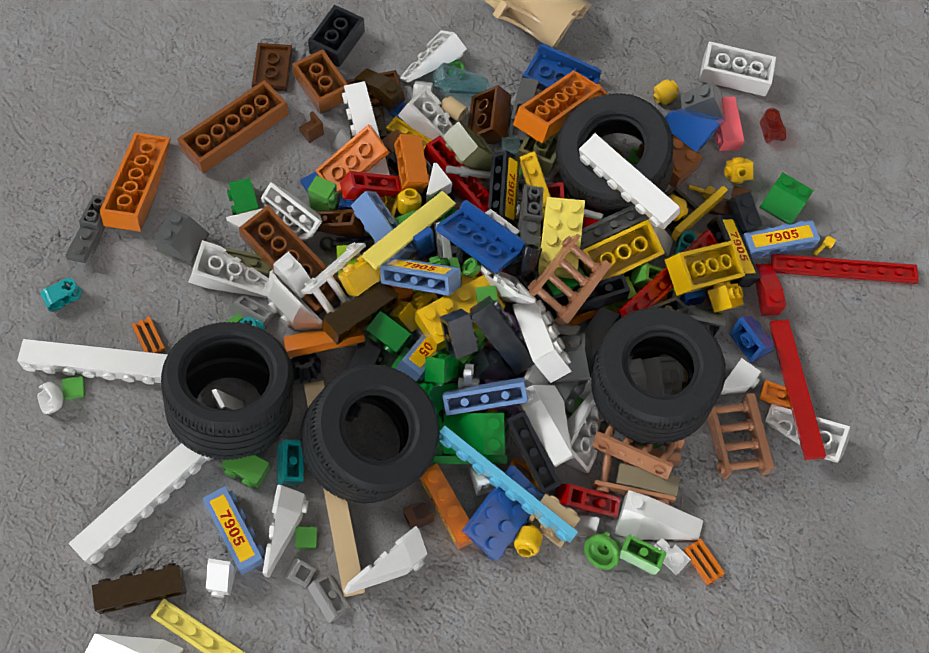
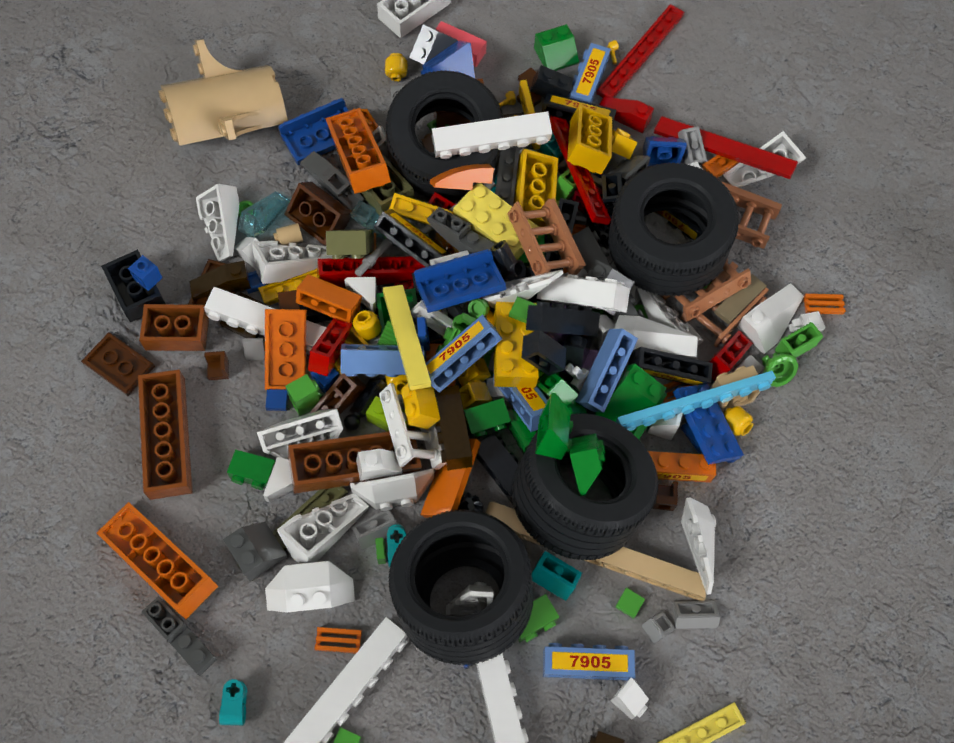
camera: 55 degrees left, 0 degrees up
(175, 293) = (309, 587): none -> white wedge
(288, 513) = (604, 608): white wedge -> none
(344, 32) = (145, 273): none -> blue brick
(376, 411) = (586, 459): none -> green slope
(384, 370) = (554, 429): none -> green slope
(578, 186) = (463, 177): none -> orange slope
(739, 170) = (509, 62): yellow brick -> none
(772, 126) = (482, 15): clear red piece -> none
(776, 360) = (695, 149): none -> light grey slope

